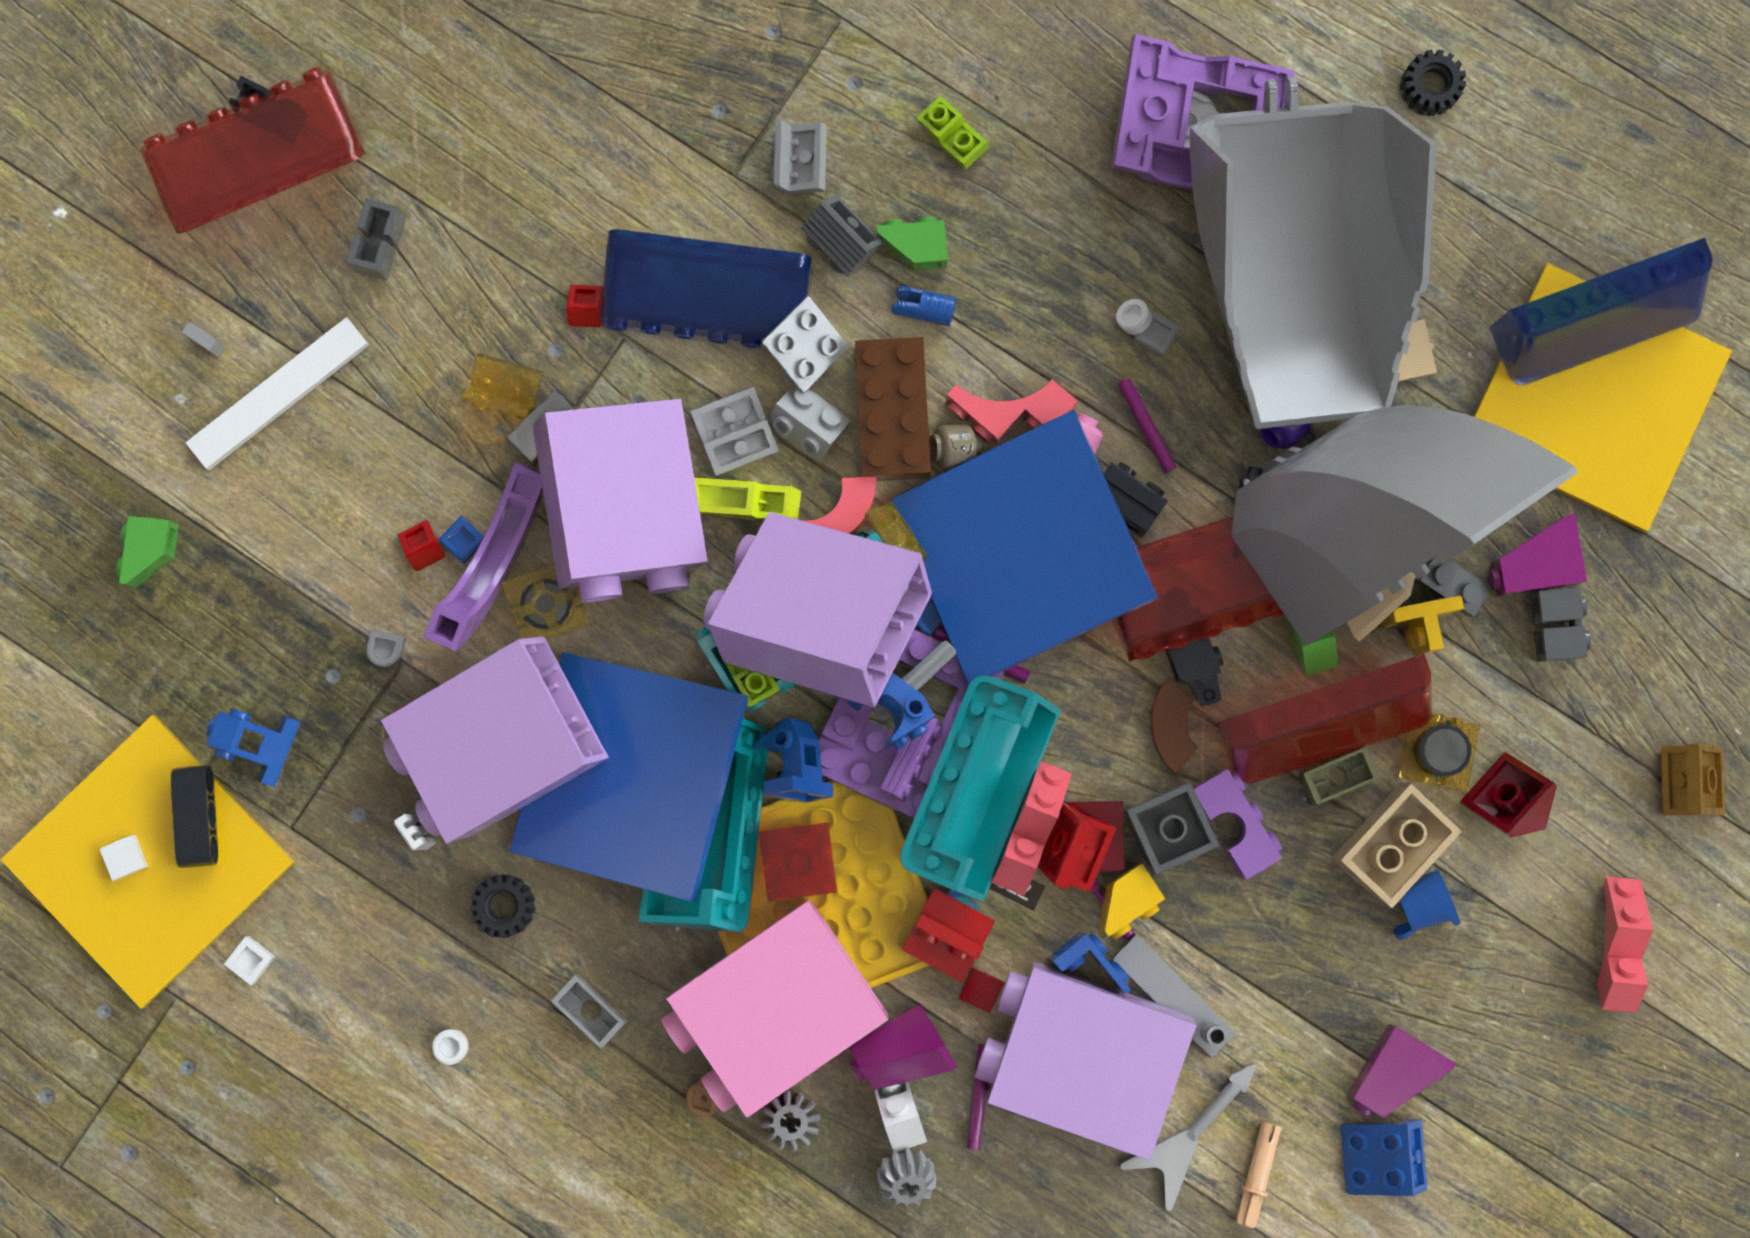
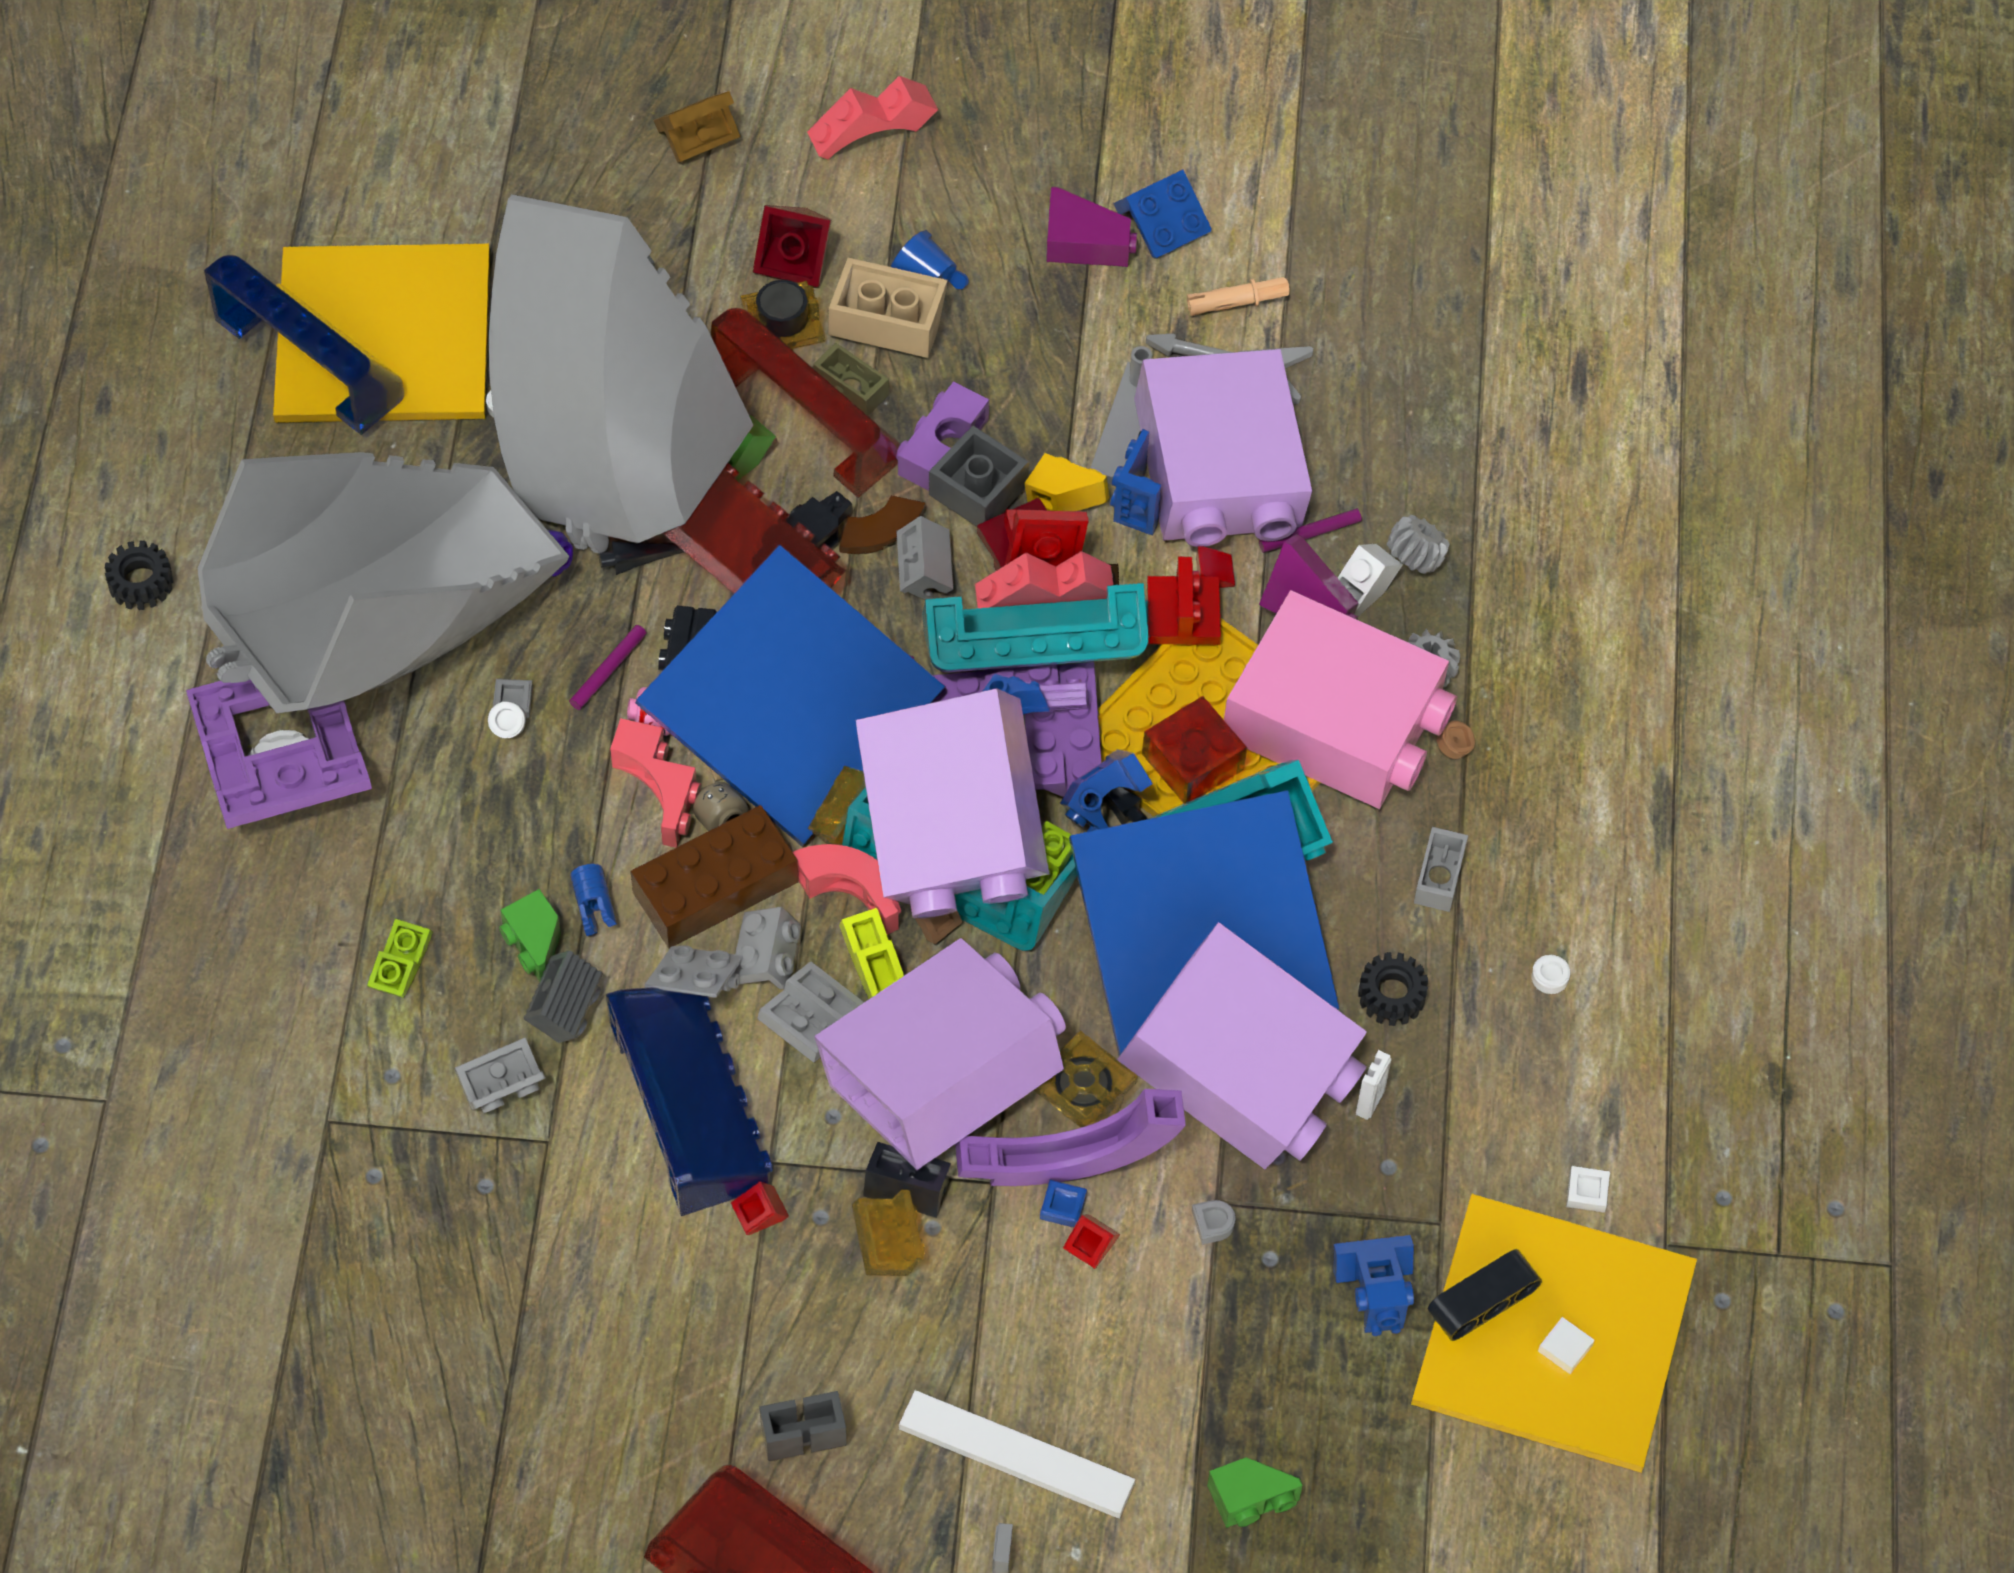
camera: 120 degrees left, 25 degrees down
(1115, 741) = (924, 558): none -> light grey hinge

